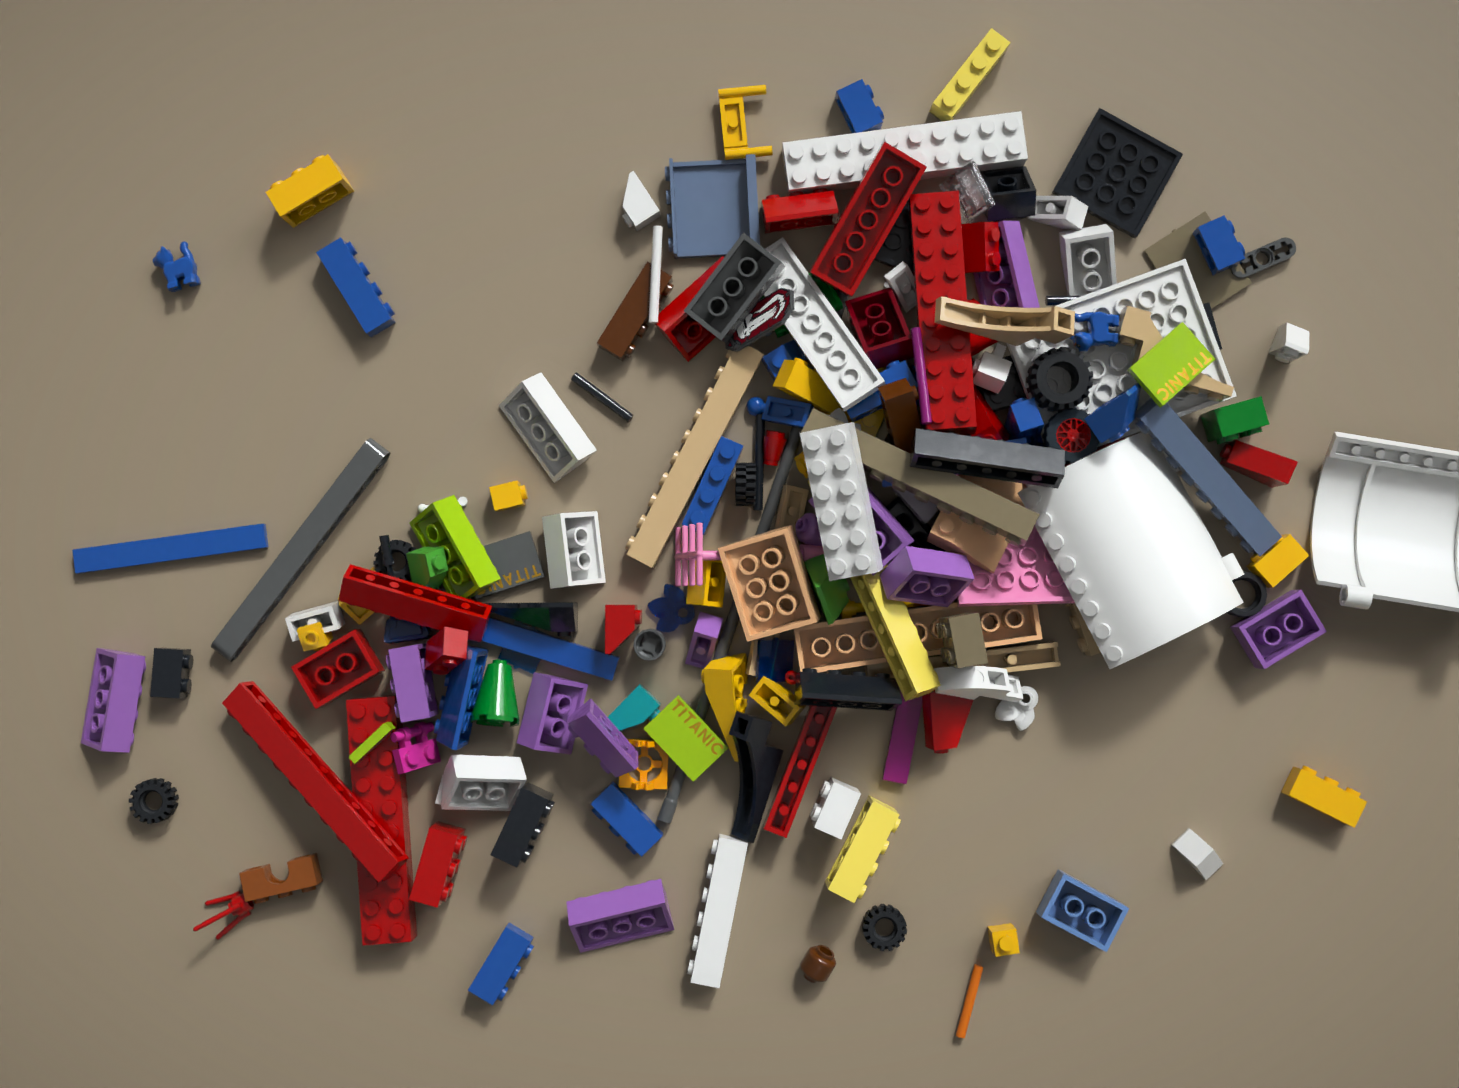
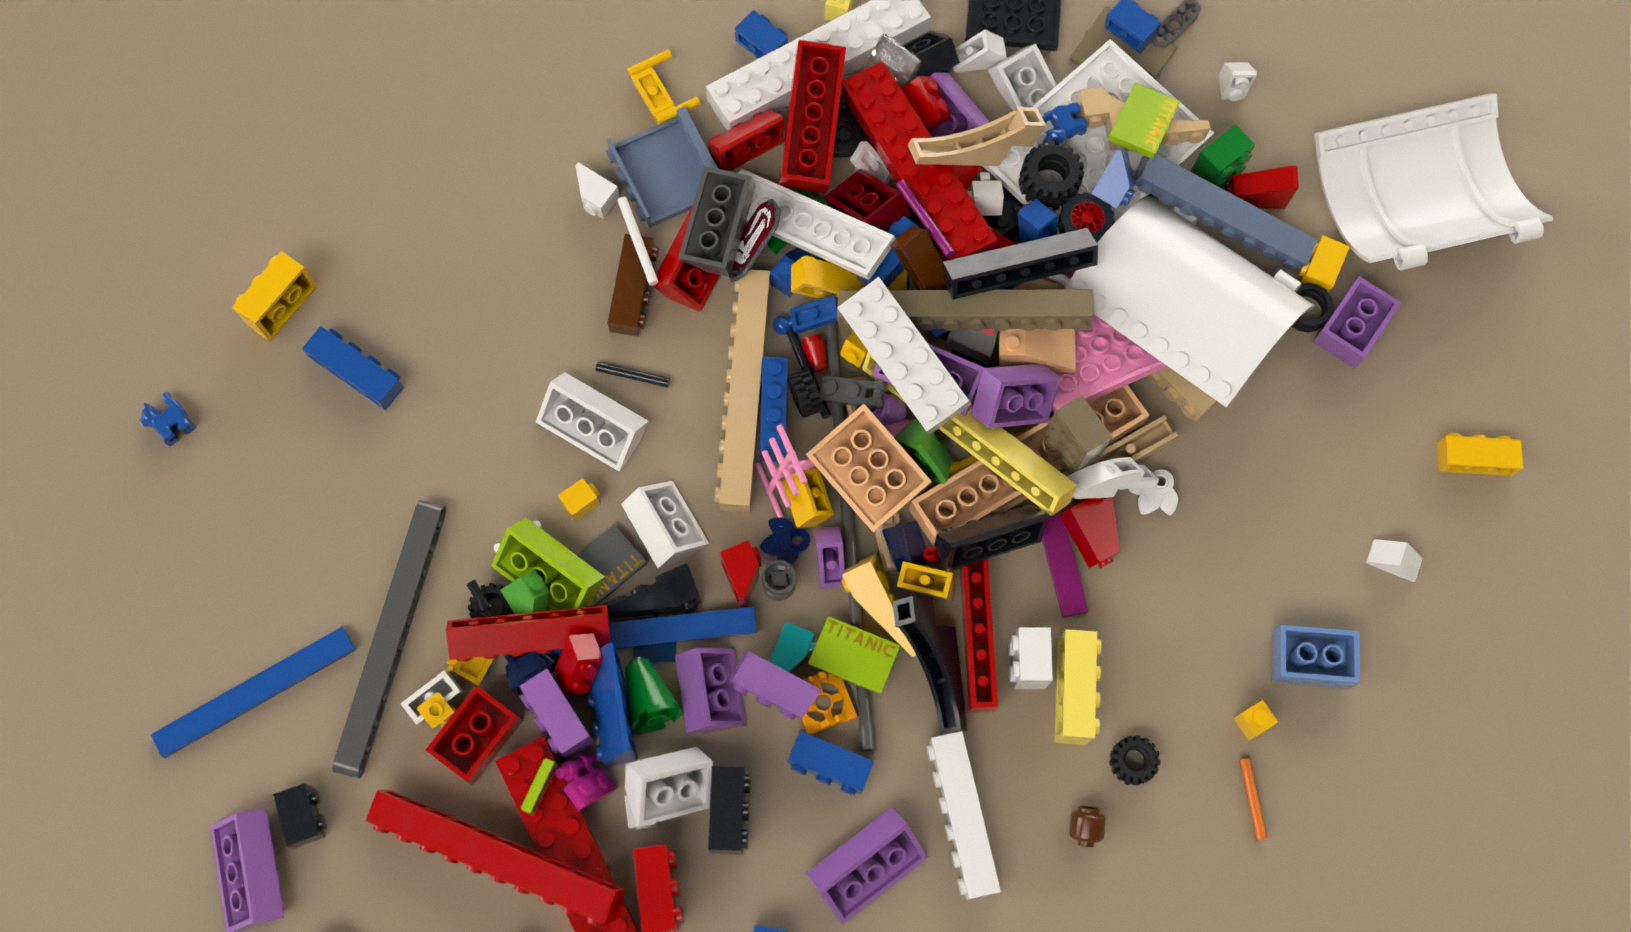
camera: 25 degrees left, 15 degrees down
(786, 502) = (852, 391): none -> dark grey plate

